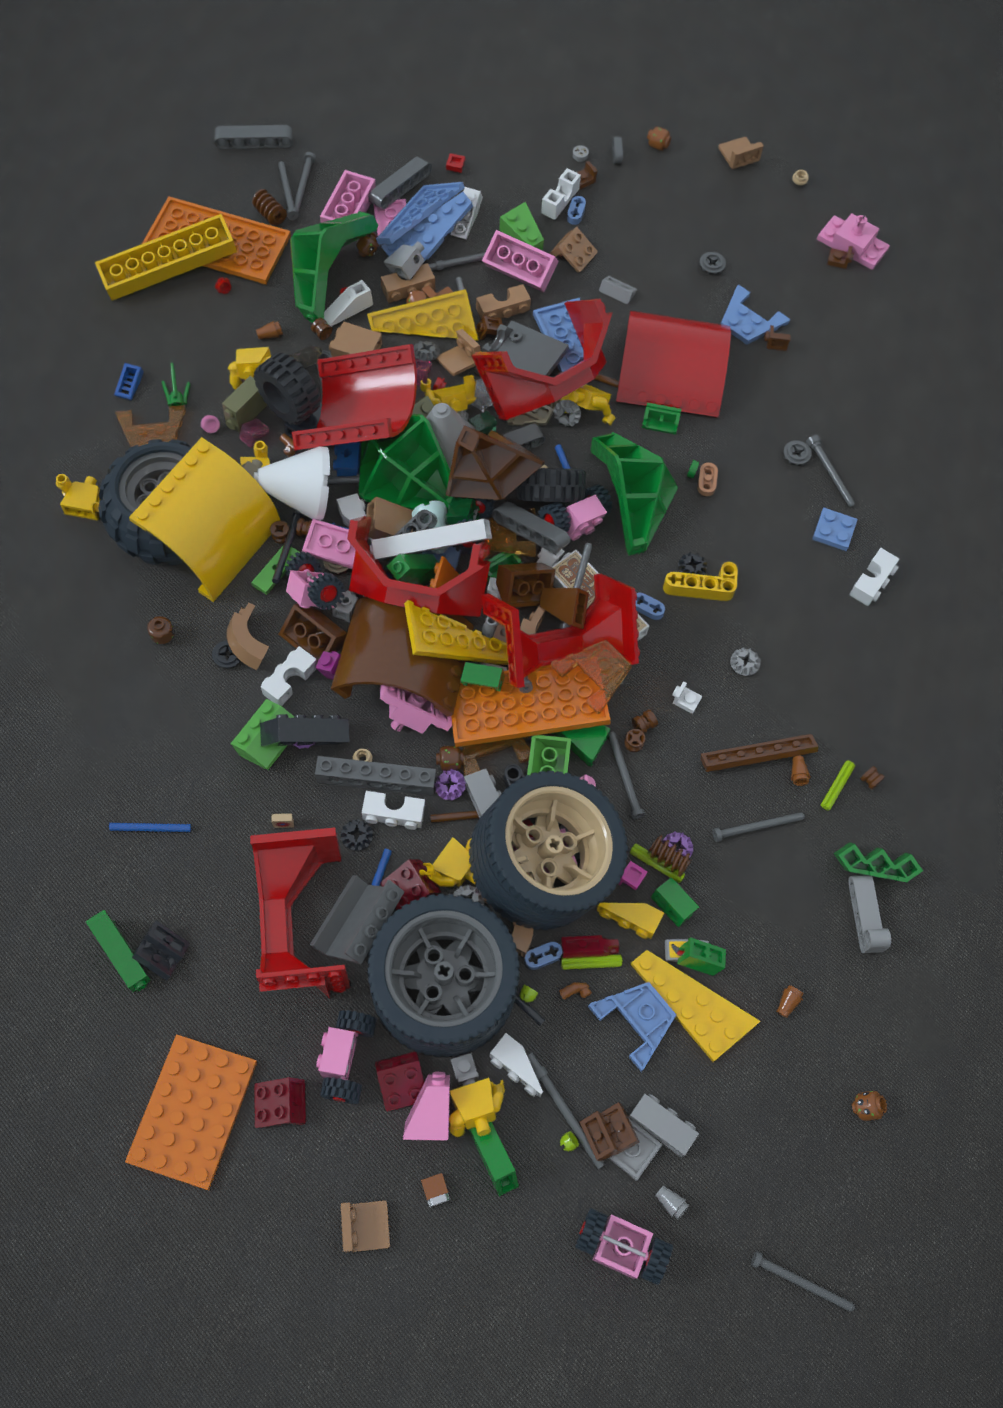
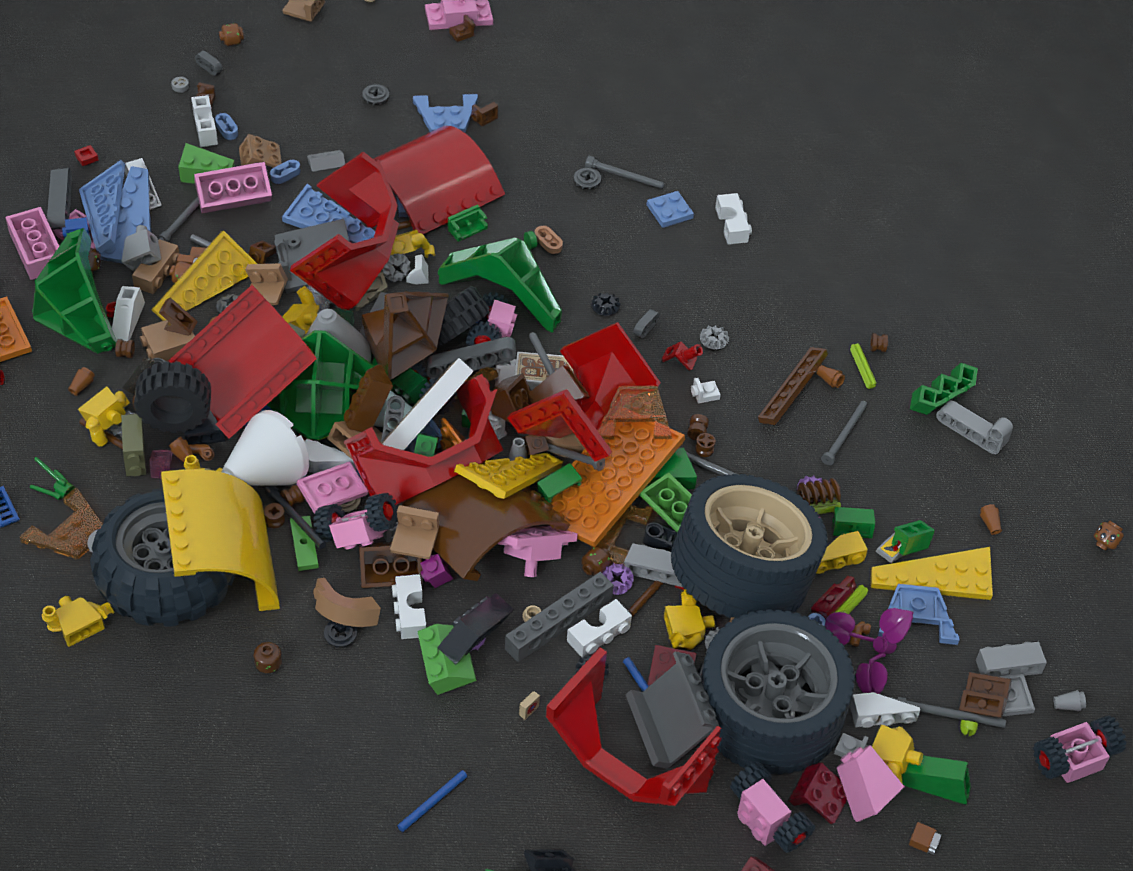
camera: 45 degrees left, 15 degrees down
(210, 424) = (116, 484): bright pink tile -> none
(273, 434) = (180, 448): none -> dark orange cone
(334, 627) = (415, 532): none -> medium nougat bracket
(368, 332) = (178, 319): none -> reddish brown slope
(383, 214) = (75, 224): none -> blue brick
(412, 497) = (368, 399): none -> reddish brown slope
(517, 302) = (259, 221): medium nougat arch -> none
(577, 276) = (285, 171): none -> medium blue beam
(581, 1017) = (894, 623): none -> magenta plant
(583, 429) = (420, 273): none -> white tile
(700, 582) = (640, 300): yellow beam -> none
(701, 655) = (685, 355): none -> red bracket
(703, 606) = (646, 323): none -> dark grey beam

